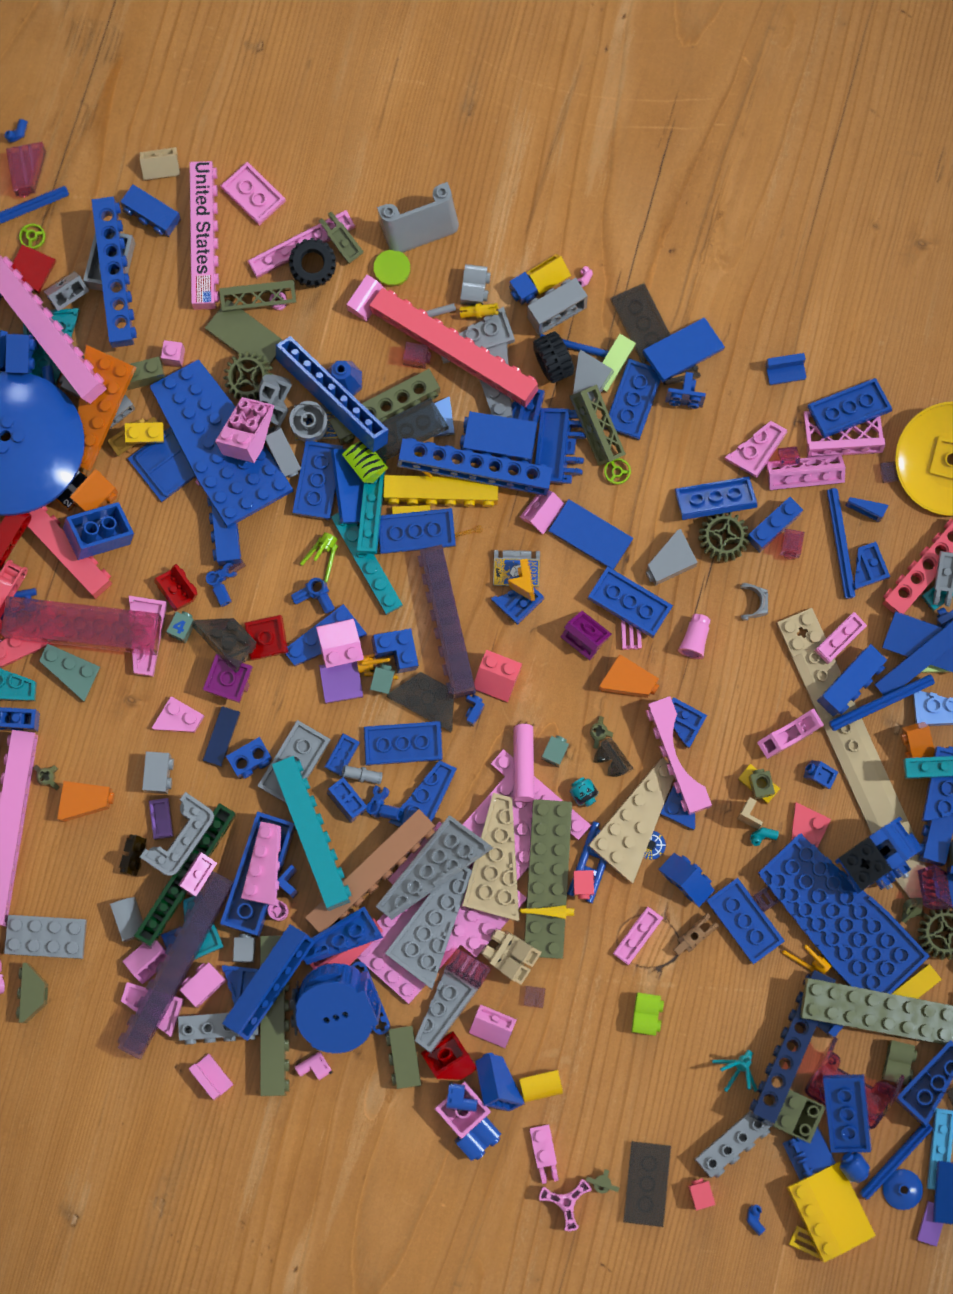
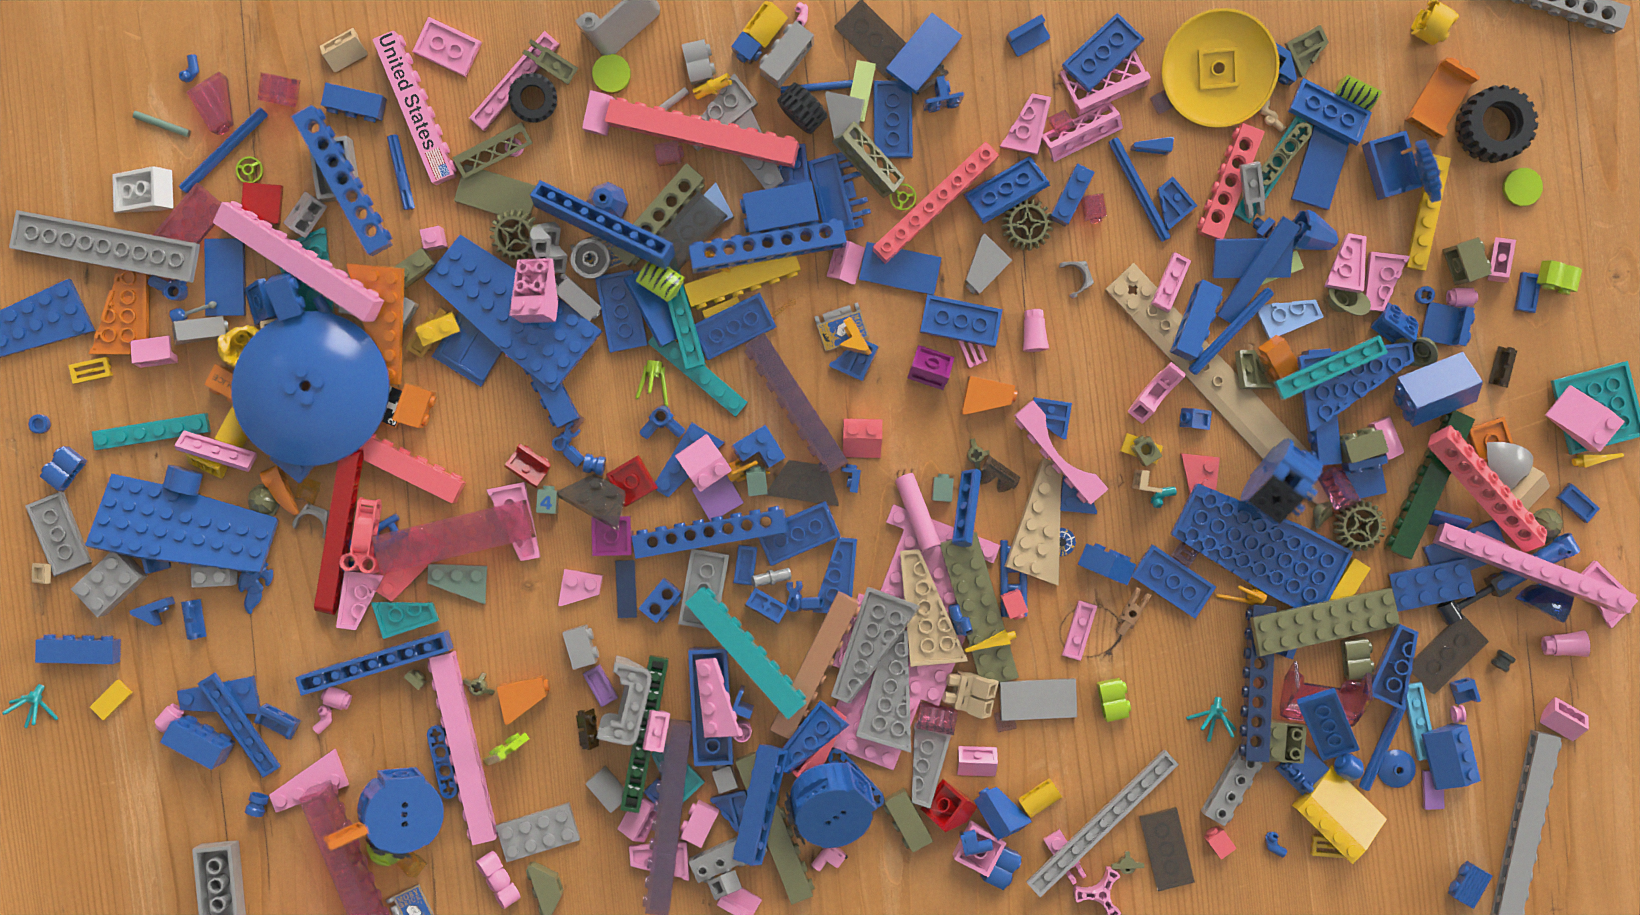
camera: 25 degrees left, 10 degrees up
(49, 840) = (501, 751): none -> lime wing
(88, 175) = (278, 89): none -> clear pink brick
(98, 530) = (432, 440): blue brick -> none
(167, 285) = (400, 172): none -> blue axle
(204, 1052) = (724, 885): none -> light grey brick
(237, 609) = (594, 464): none -> blue wheel
(386, 727) = (643, 548): none -> blue brick
(525, 884) = (961, 624): none -> blue piece
(571, 775) = (966, 508): none -> blue brick
(573, 987) = (1038, 699): none -> light grey tile
(584, 792) = (985, 517): teal head -> none
(592, 1130) = (1102, 823): none -> light grey plate
(644, 485) = (935, 202): none -> coral brick
(889, 748) = (1251, 371): none -> olive wing

